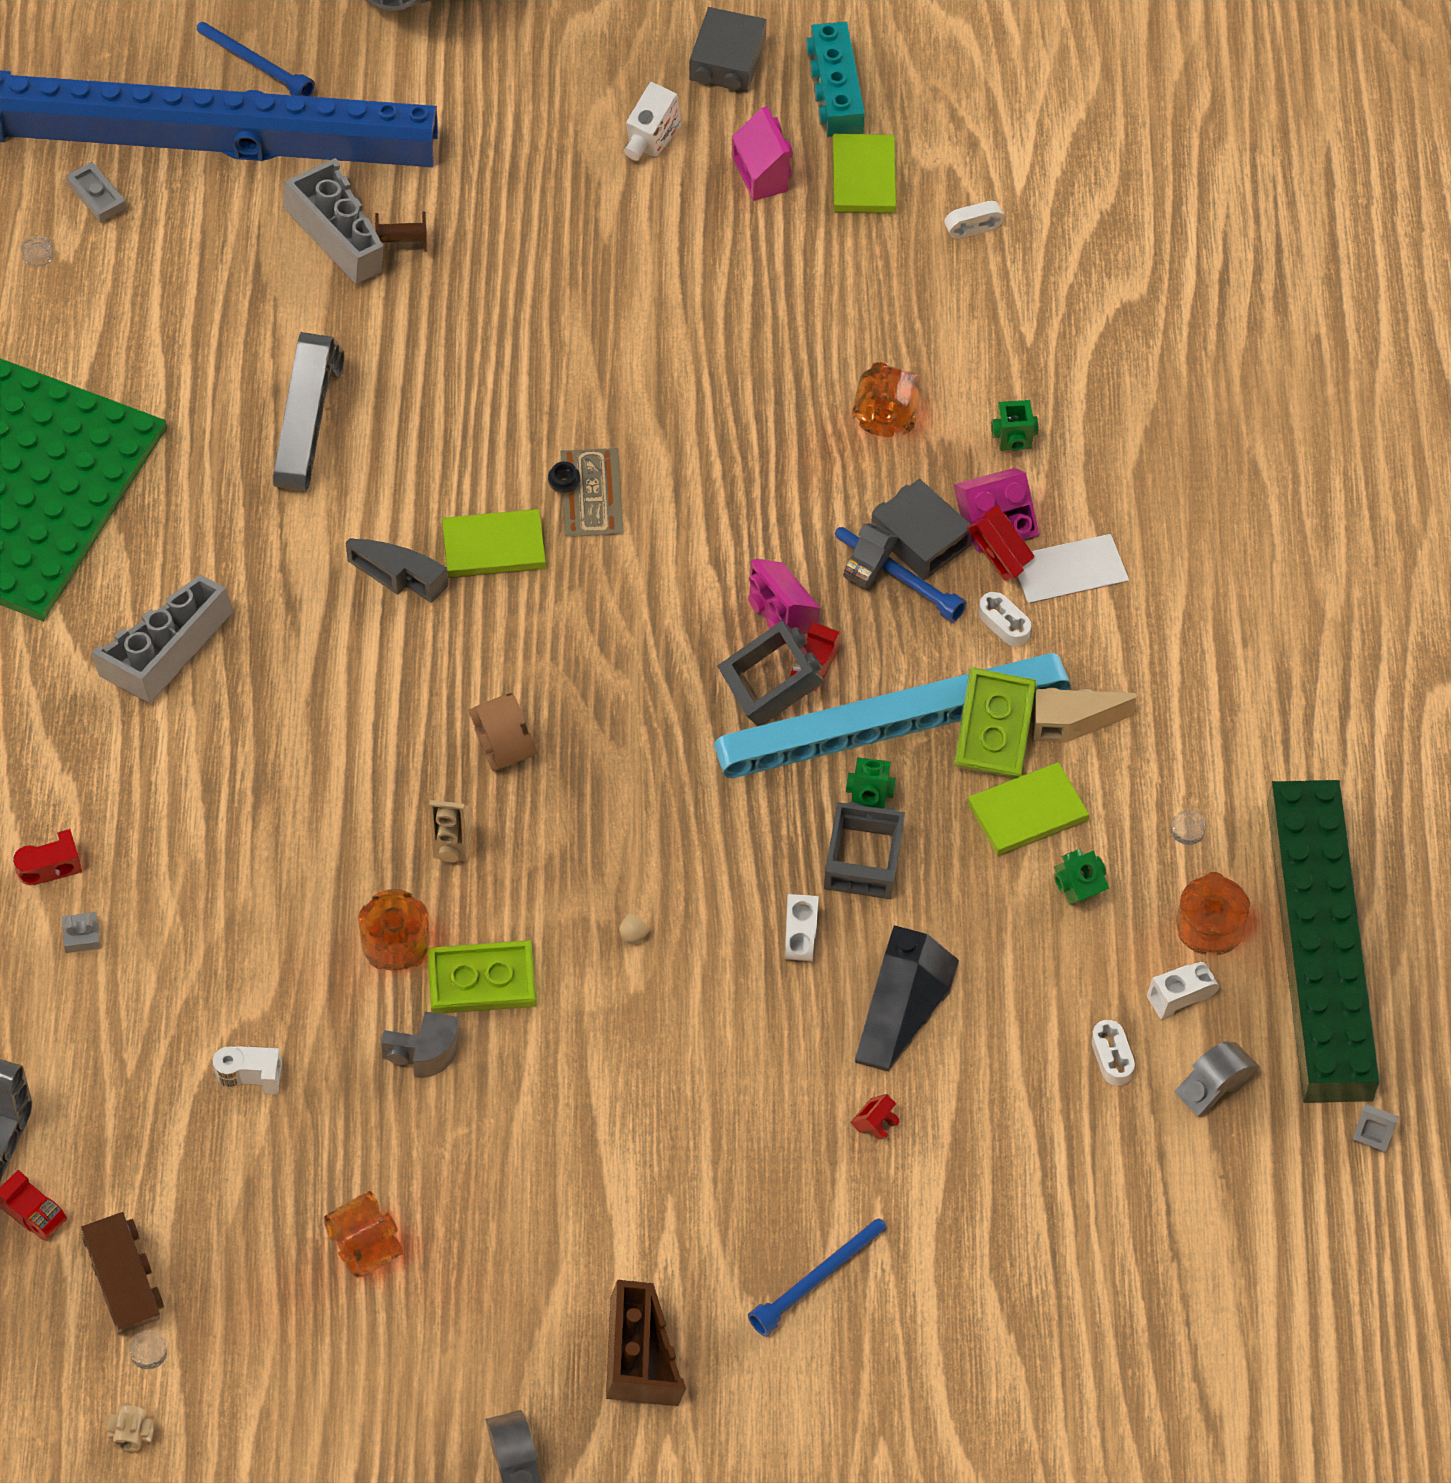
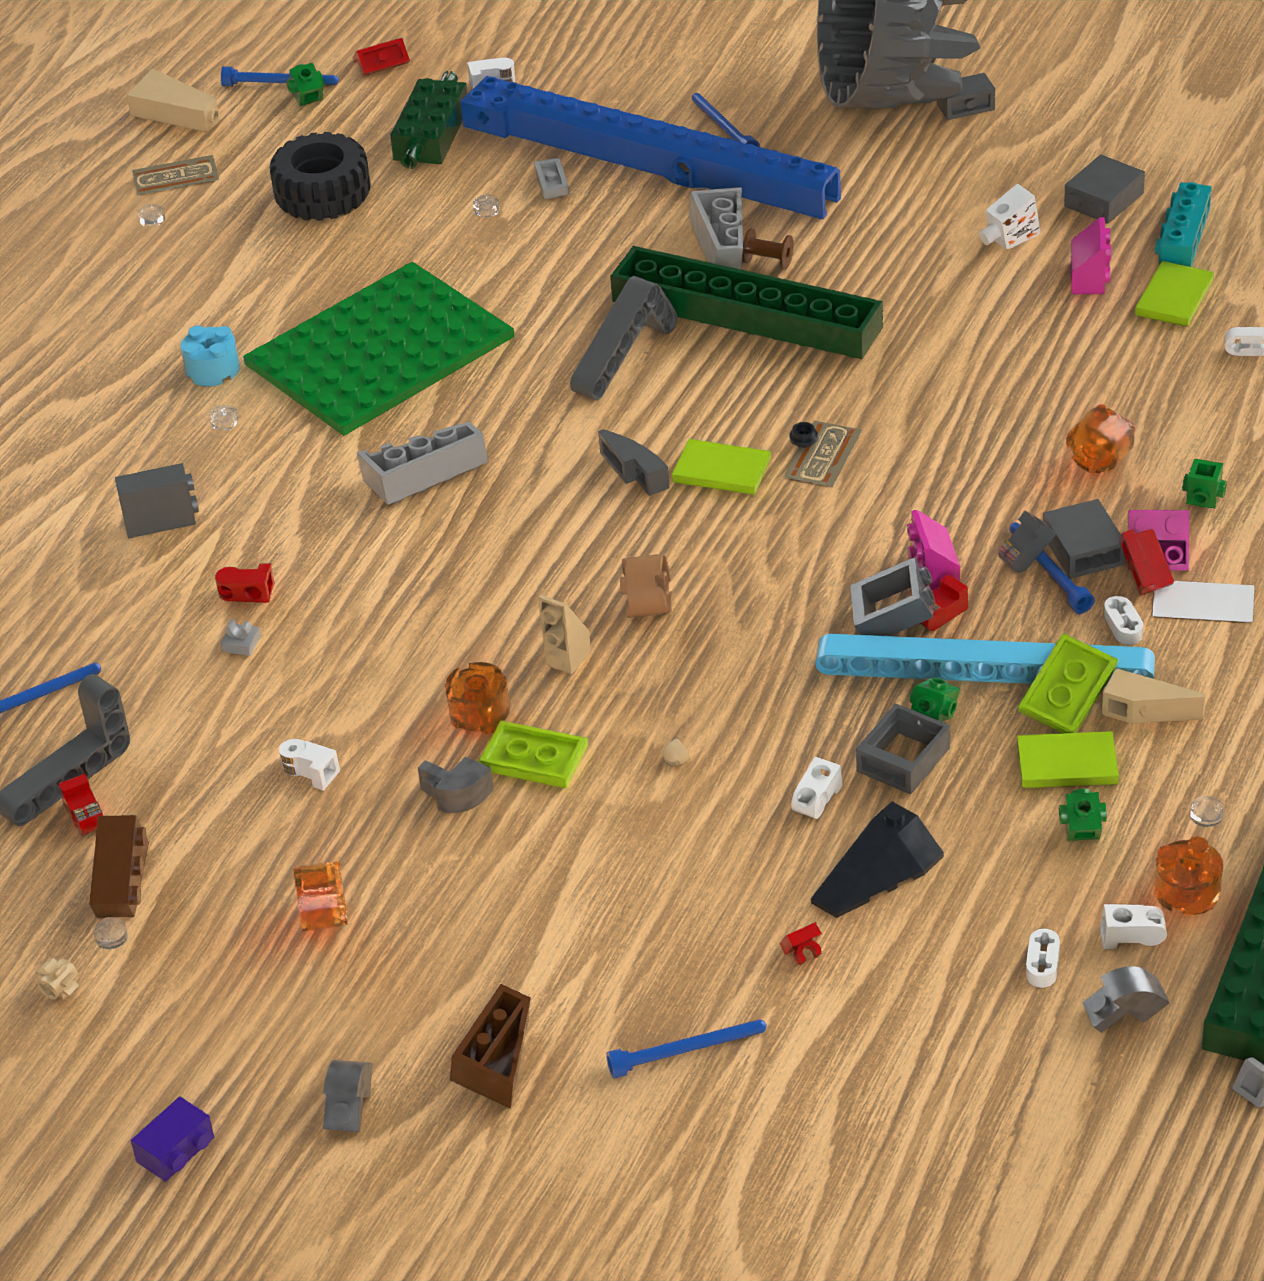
camera: 30 degrees right, 15 degrees down
(418, 314) = (757, 302): none -> dark green brick

